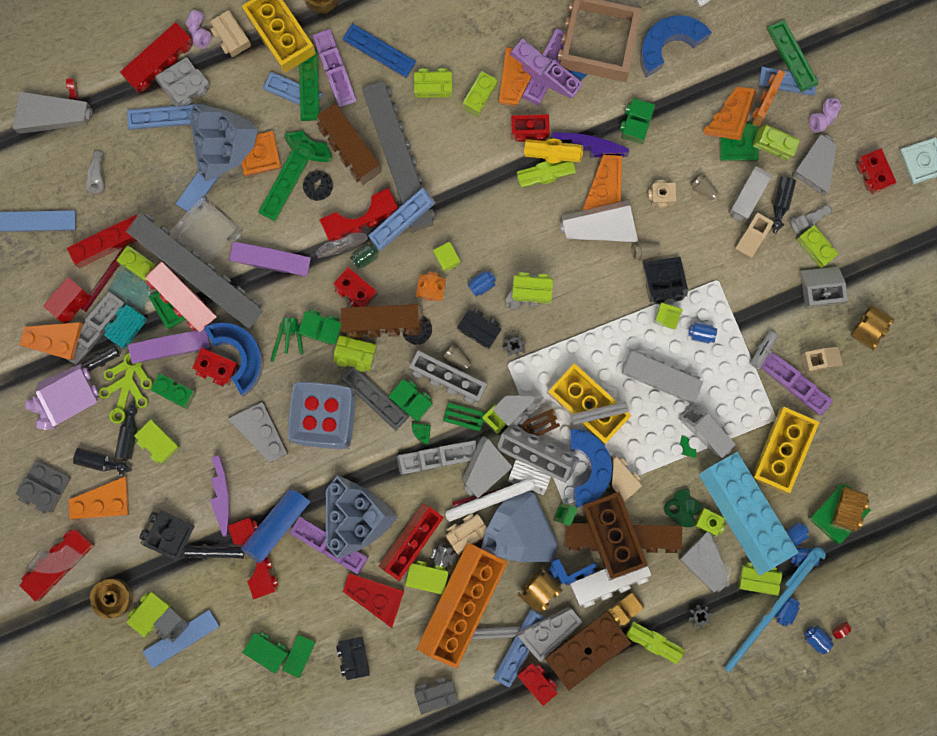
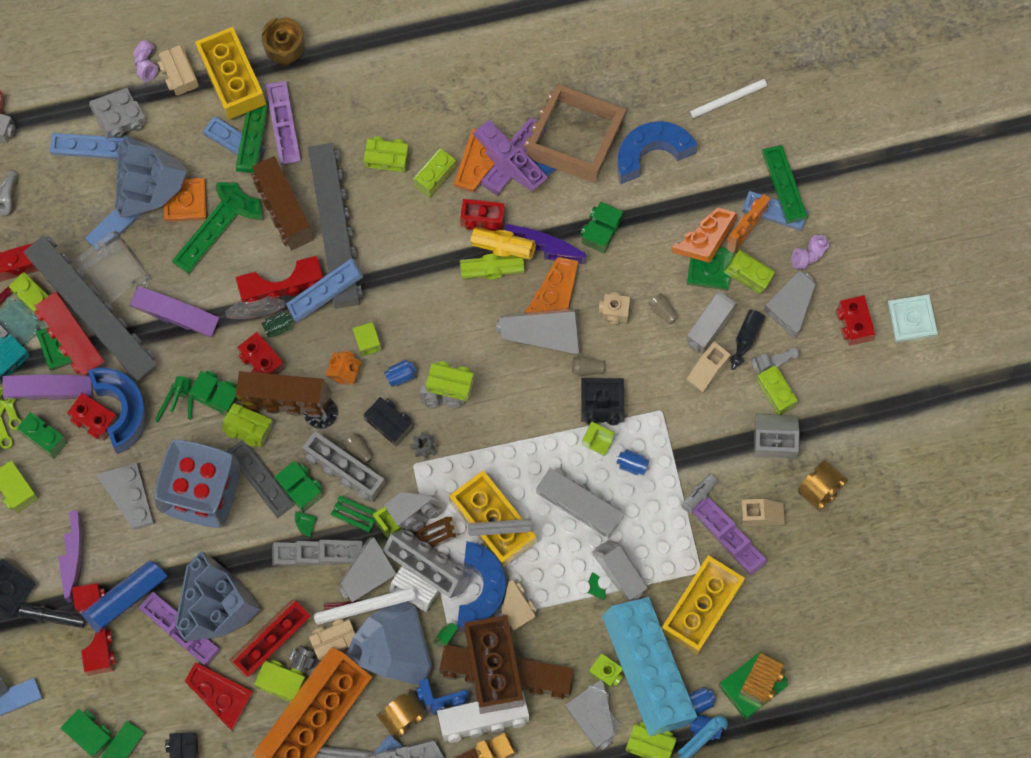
camera: 15 degrees right, 10 degrees down
(157, 57) = (95, 83): red brick -> none
(321, 193) = (241, 252): black gear -> none
(379, 51) = (335, 112): blue tile -> none
(685, 508) = (582, 652): dark green plate -> none

